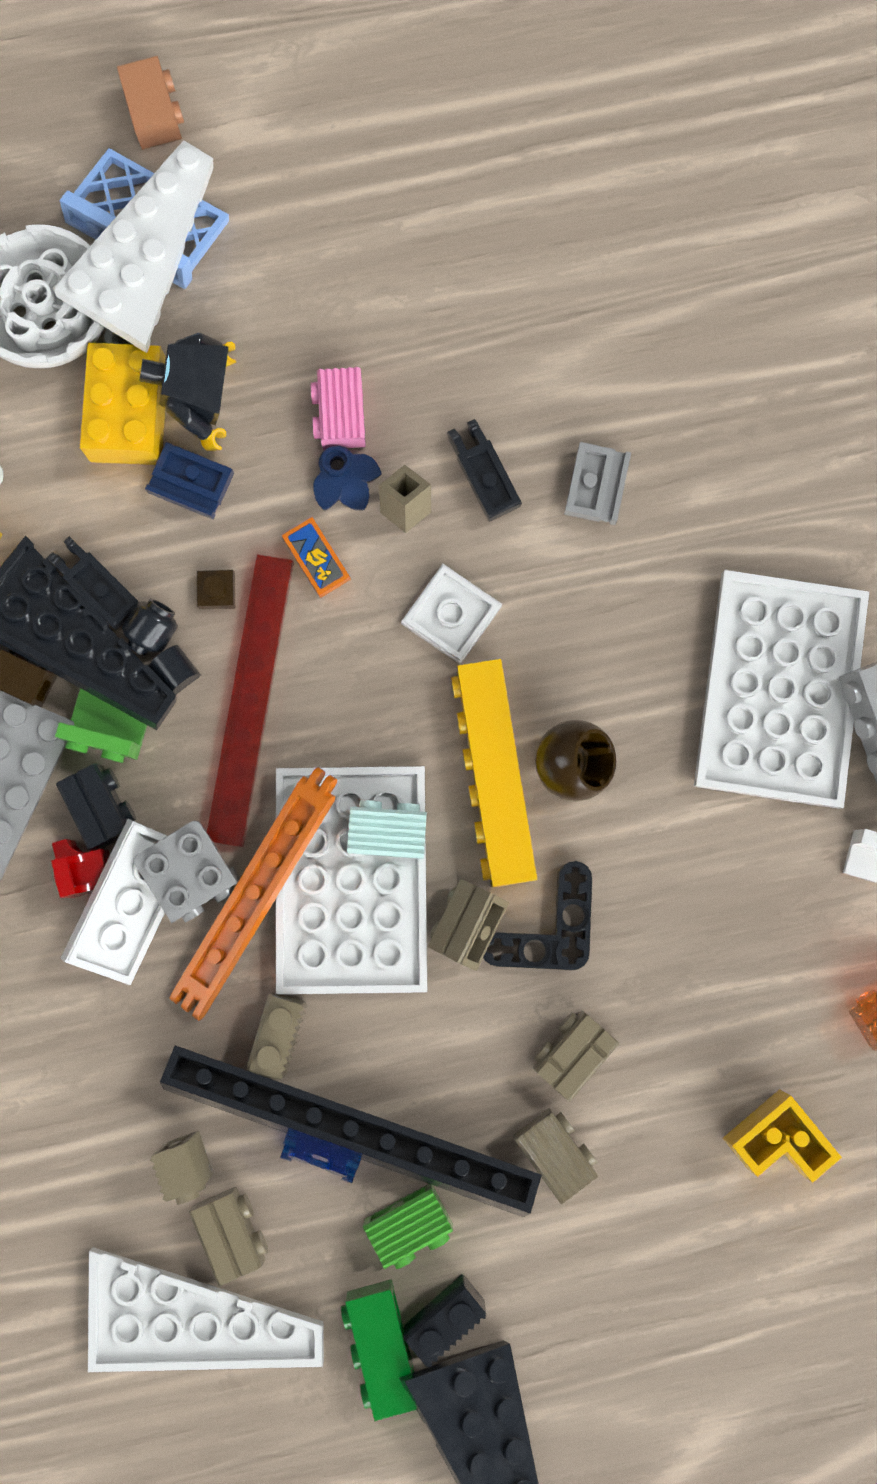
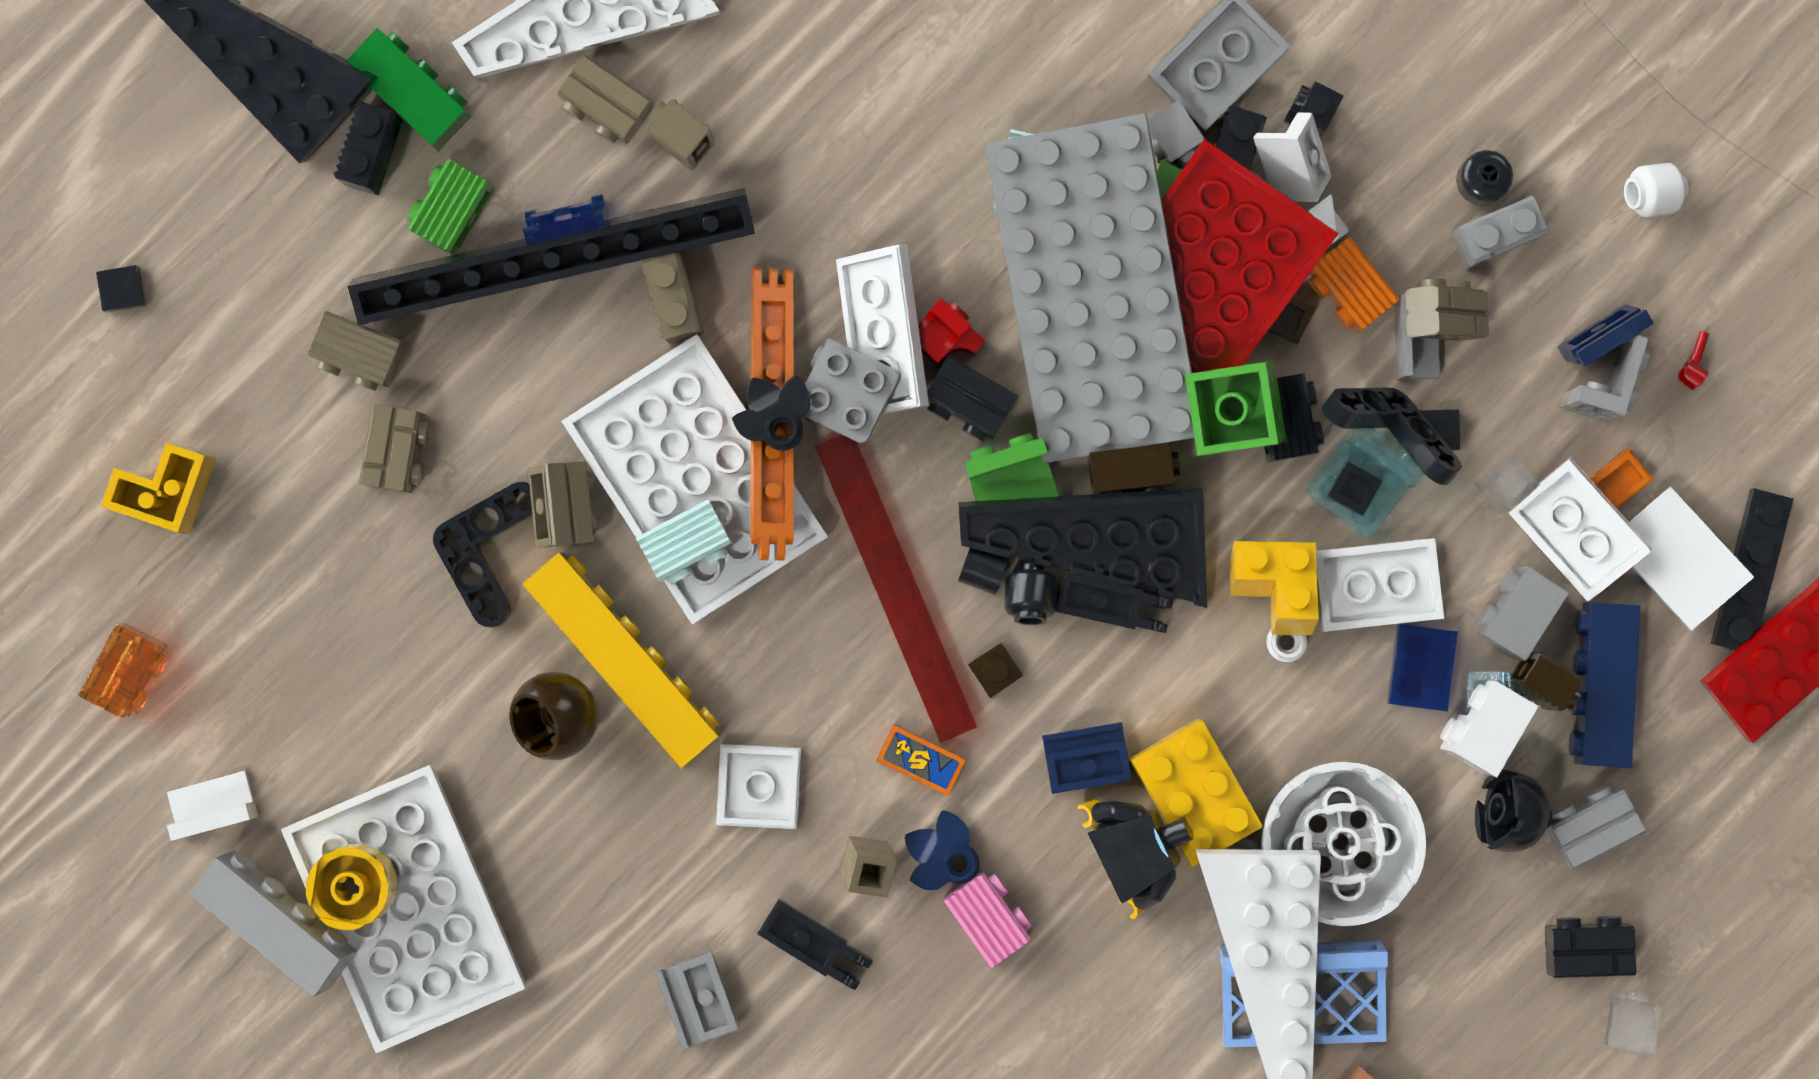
camera: 155 degrees right, 5 degrees up
(251, 894) = (771, 408): none -> black plate
(718, 1330) = (120, 288): none -> black tile
(835, 727) = (334, 901): none -> yellow brick

